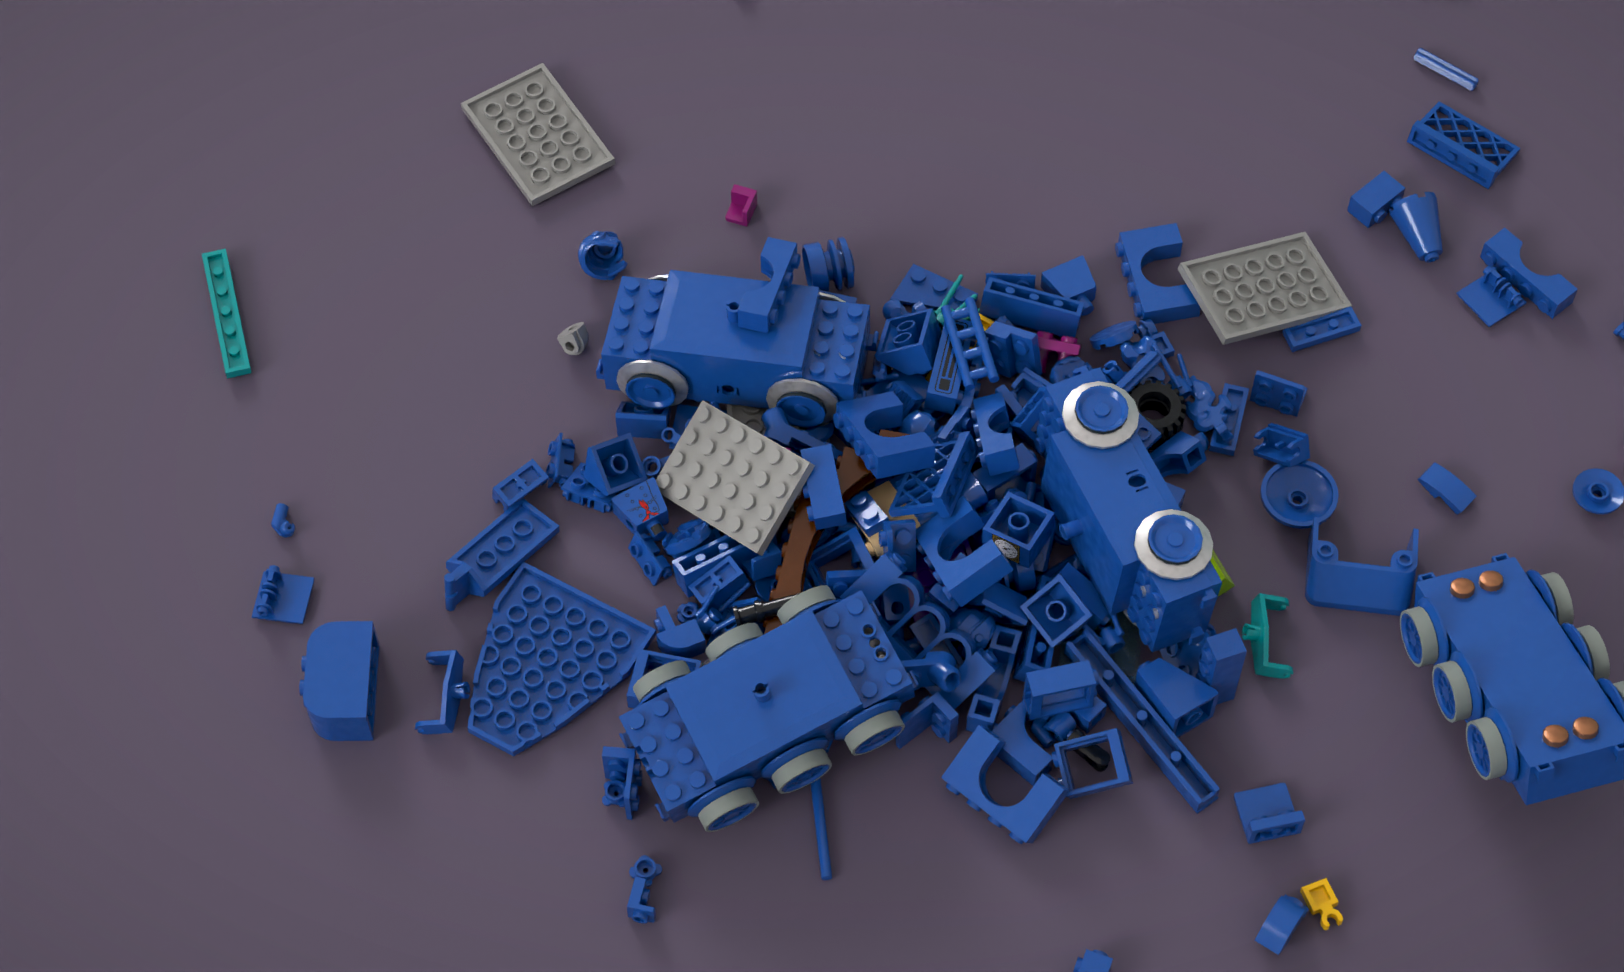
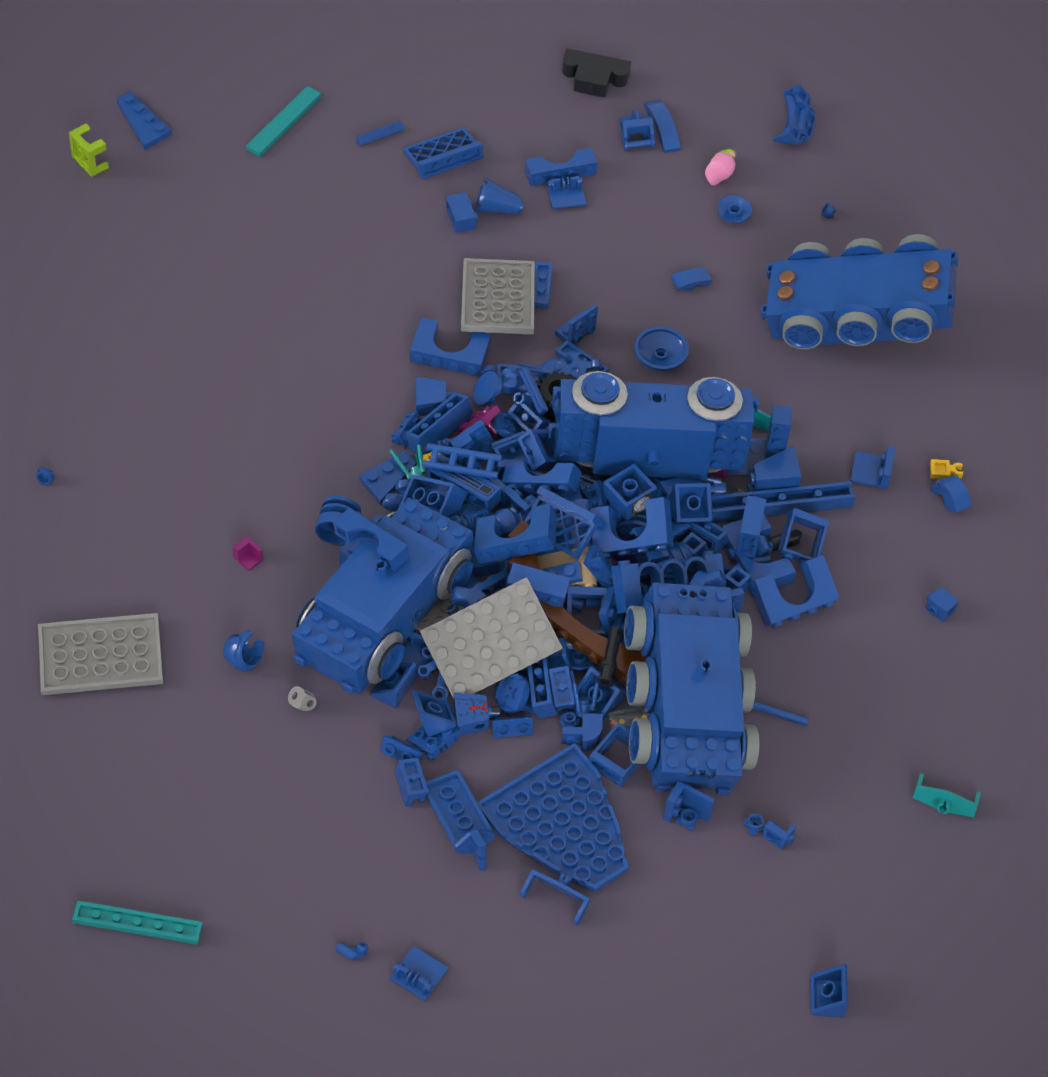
camera: 70 degrees left, 5 degrees down
(341, 680) = (521, 952): blue brick -> none
(1282, 445) = (622, 340): blue hinge -> none
(1359, 585) = (734, 360): blue windscreen -> none

